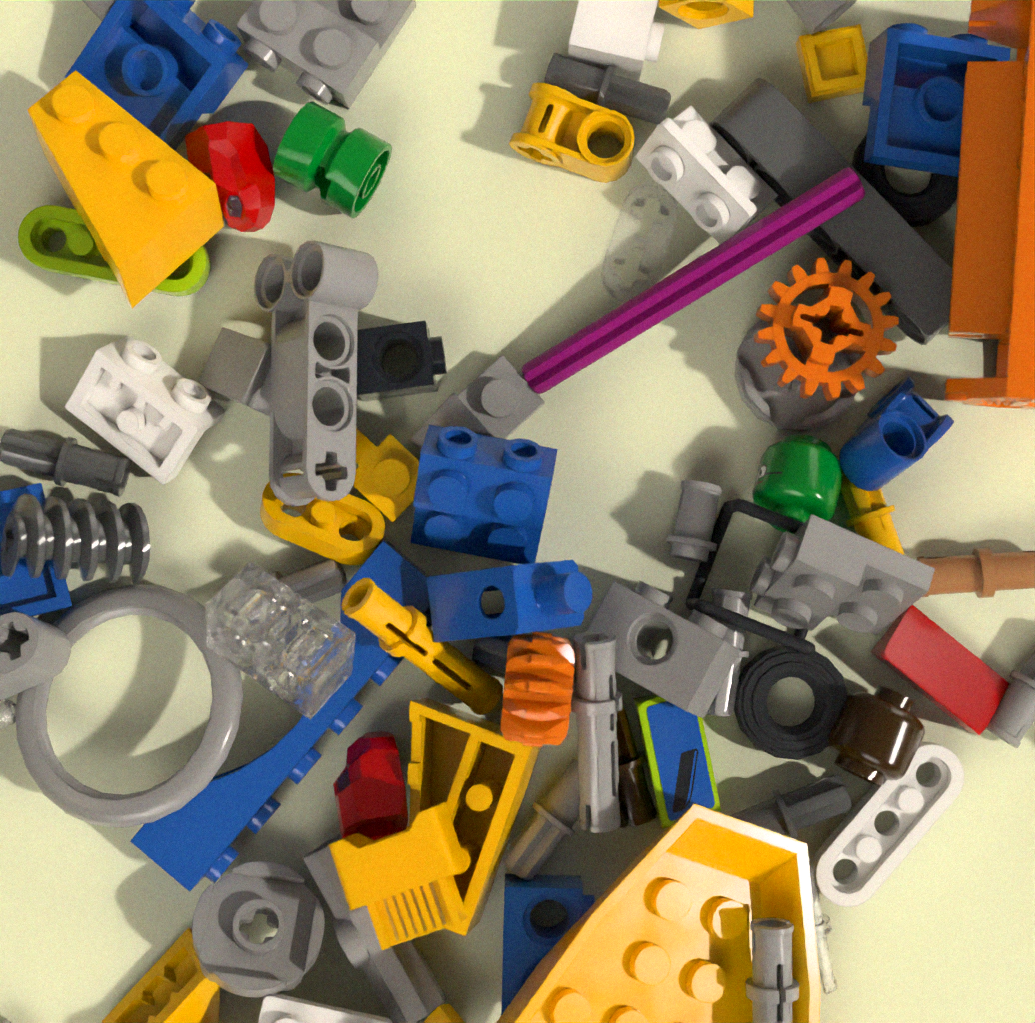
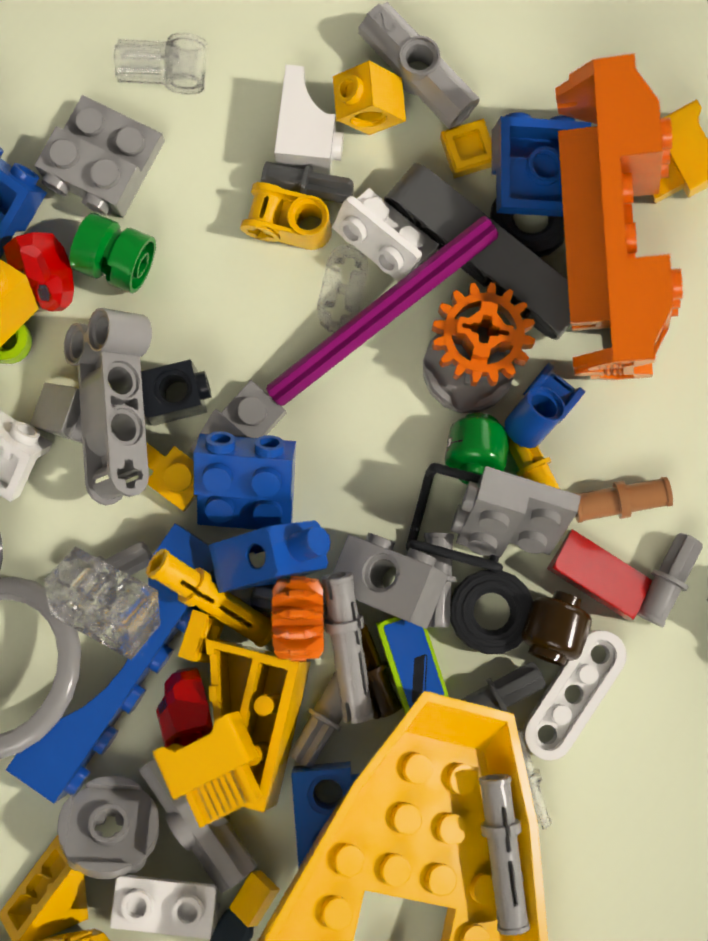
camera: 10 degrees left, 5 degrees down
(324, 523) = (132, 517): yellow plate -> none
(403, 684) = (200, 627): none -> yellow tile
(695, 521) = (405, 485): light grey pin -> none

